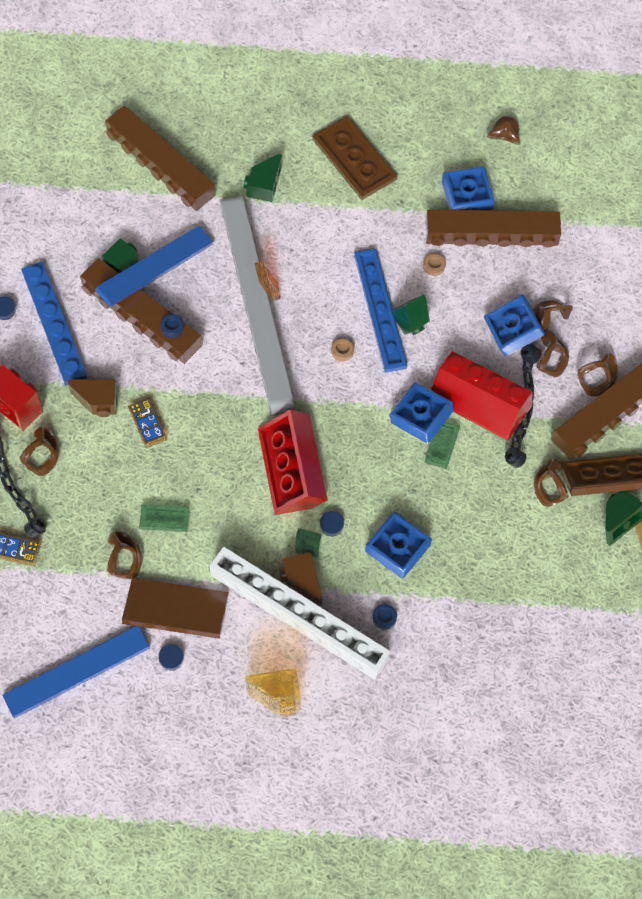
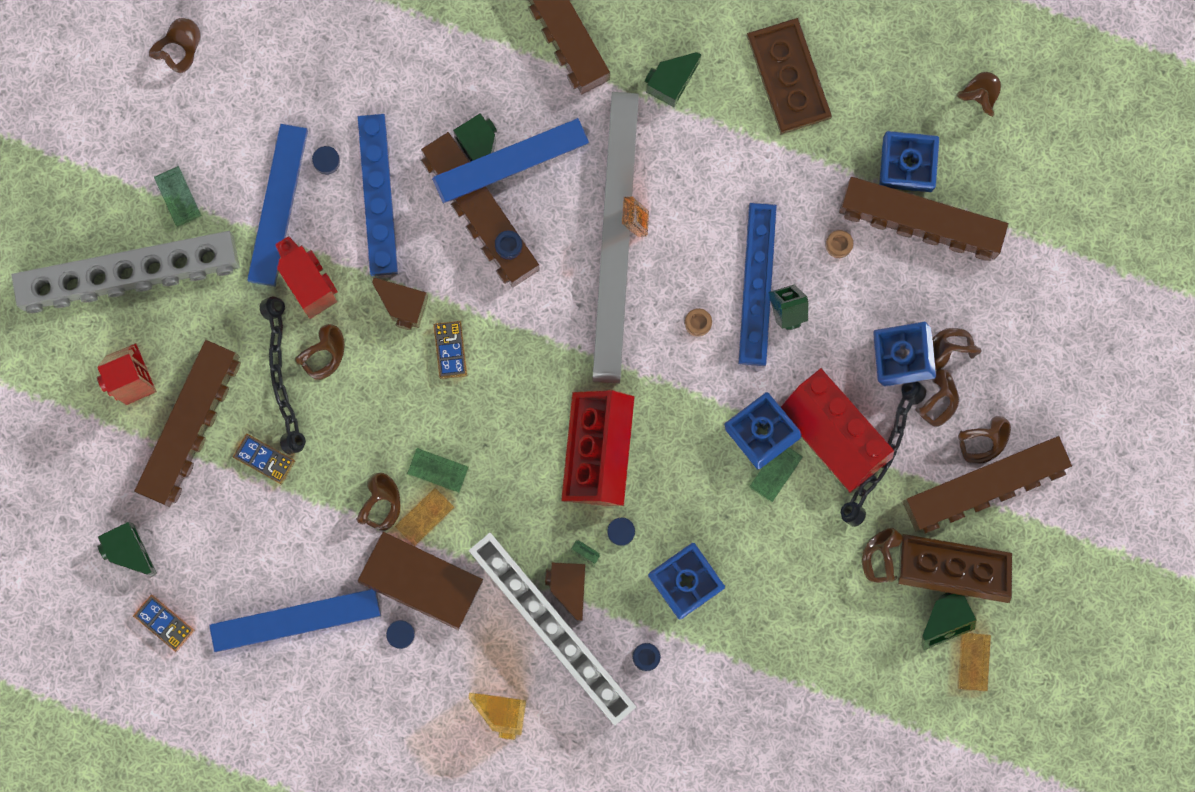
camera: 15 degrees right, 15 degrees up
(164, 557) = (425, 517): none -> clear orange tile

